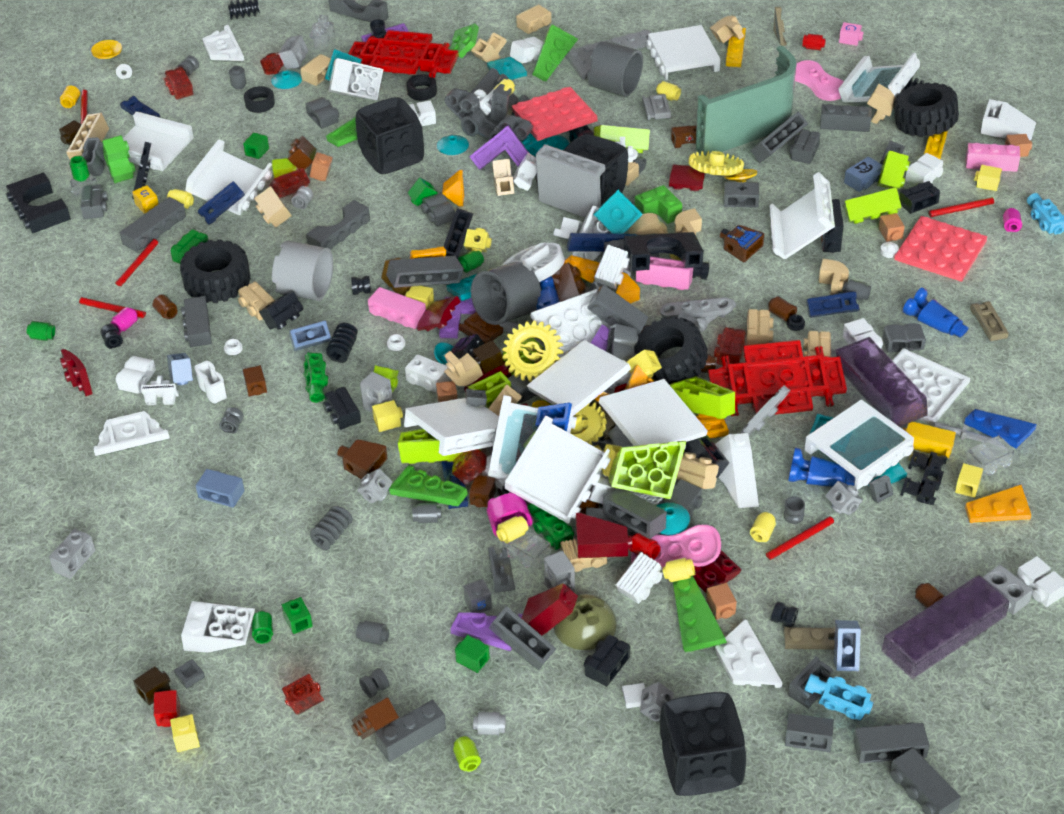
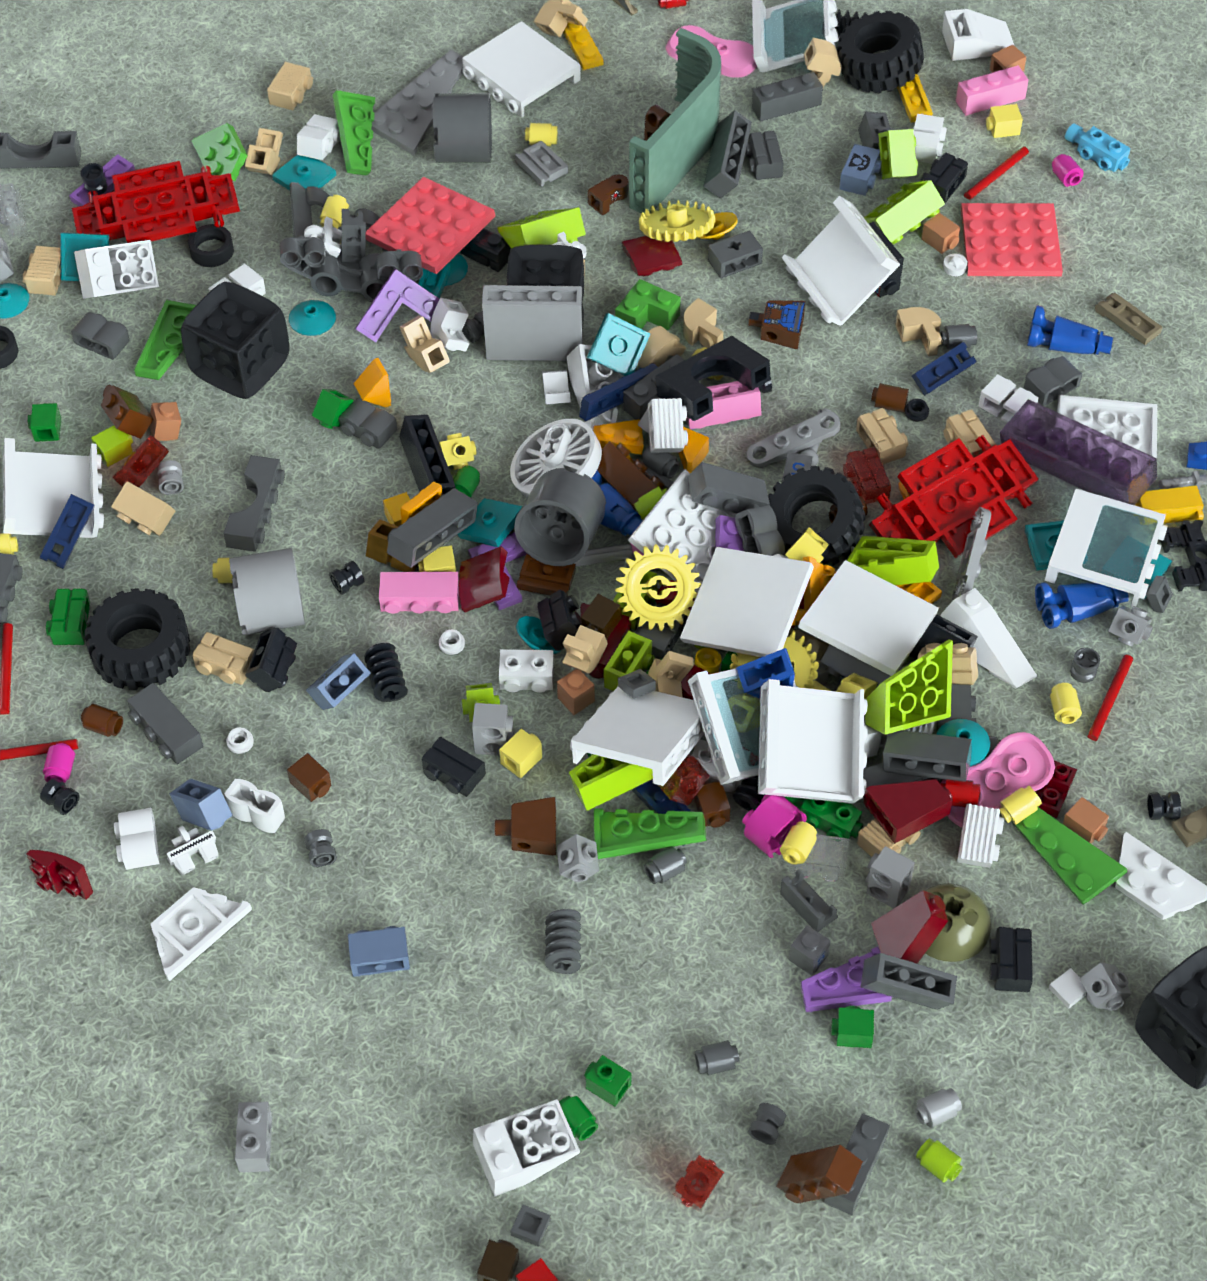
camera: 30 degrees left, 10 degrees up
(315, 376) = (385, 735): green brick -> none

